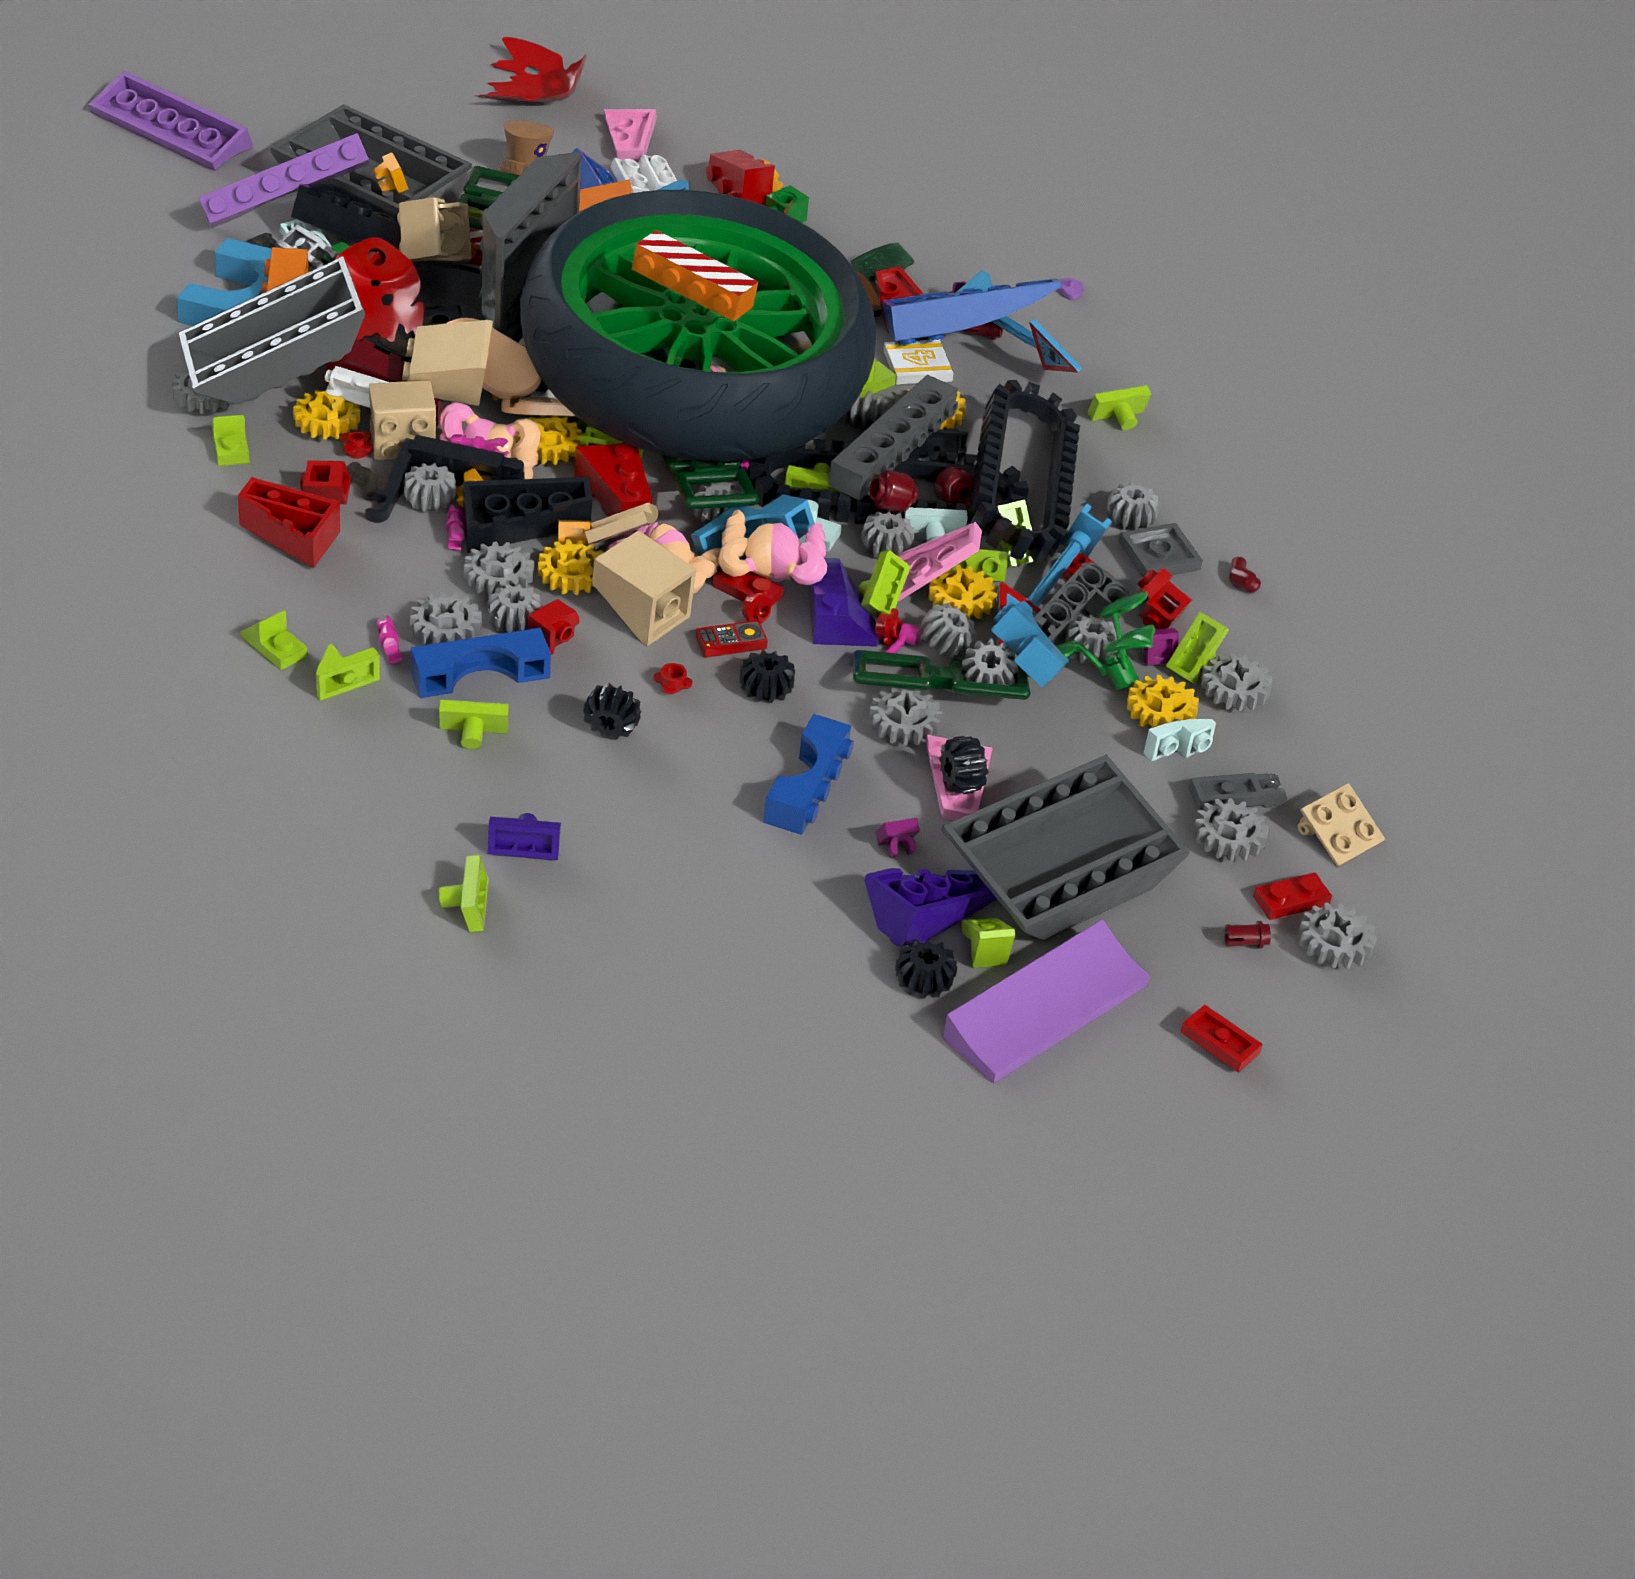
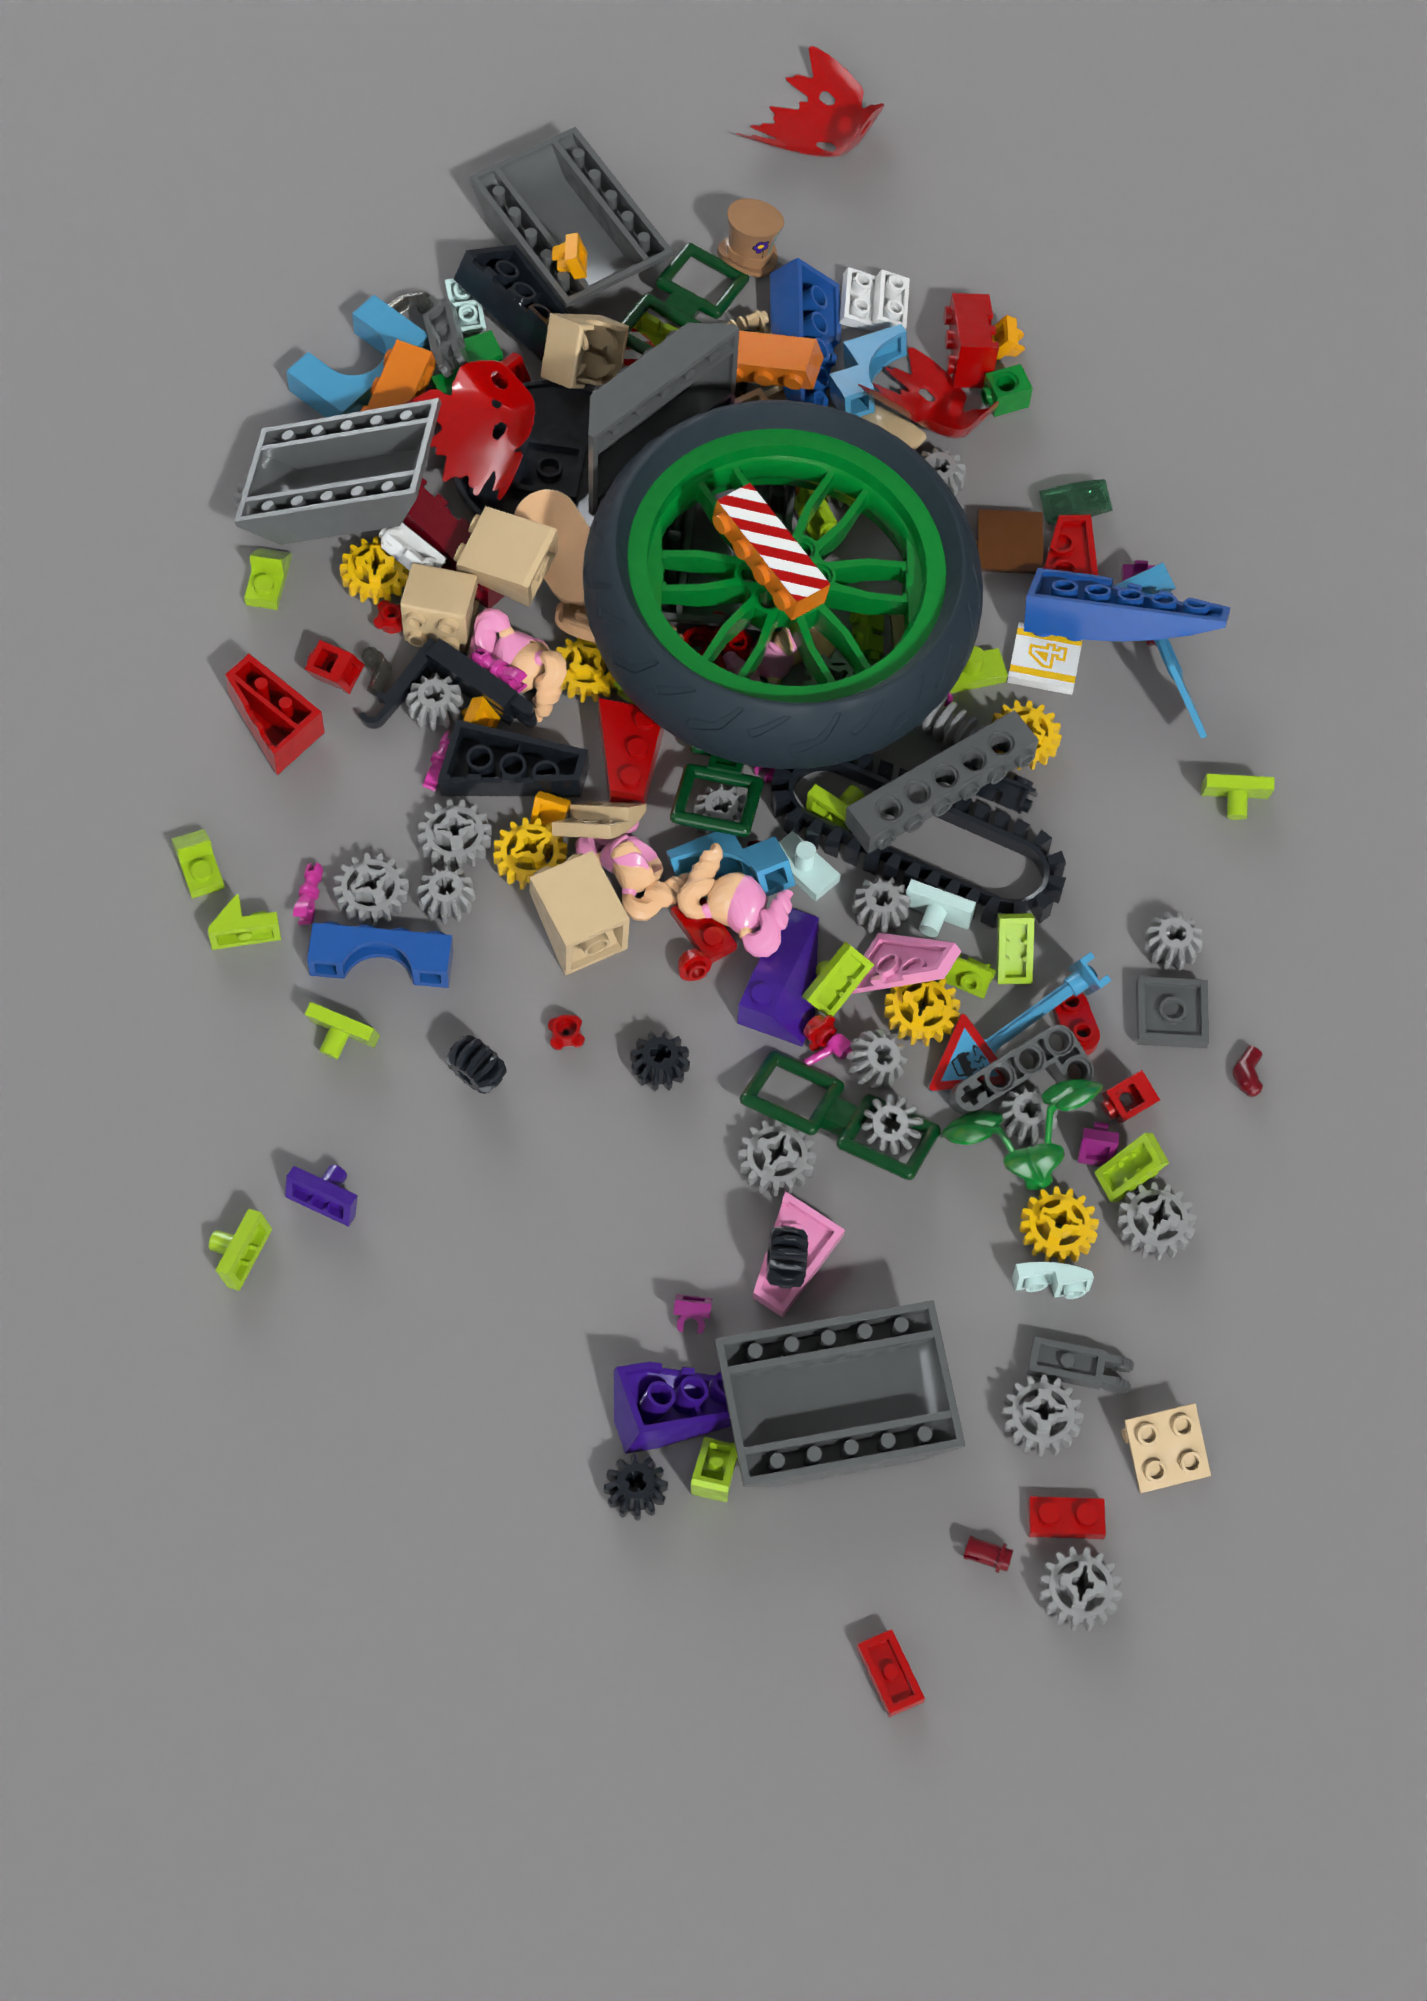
camera: 25 degrees right, 20 degrees up
(171, 121) = (396, 94): medium lavender arch -> none
(261, 188) = (460, 234): medium lavender arch -> none
(555, 621) = (474, 927): red brick -> none
(630, 131) = (889, 227): bright pink wing -> none
(731, 638) = (652, 994): tile -> none
(796, 799) = (609, 1232): blue arch -> none
(893, 491) = (901, 860): dark red head -> none
(954, 485) = (985, 863): dark red head -> none
(1027, 640) = (937, 1095): dark azure arch -> none
(1044, 1002) = (737, 1567): medium lavender arch -> none
(1060, 475) = (1104, 887): black piece -> none
(1071, 288) = (1279, 590): medium lavender piece -> none
(1153, 582) = (1126, 1067): red plate -> none

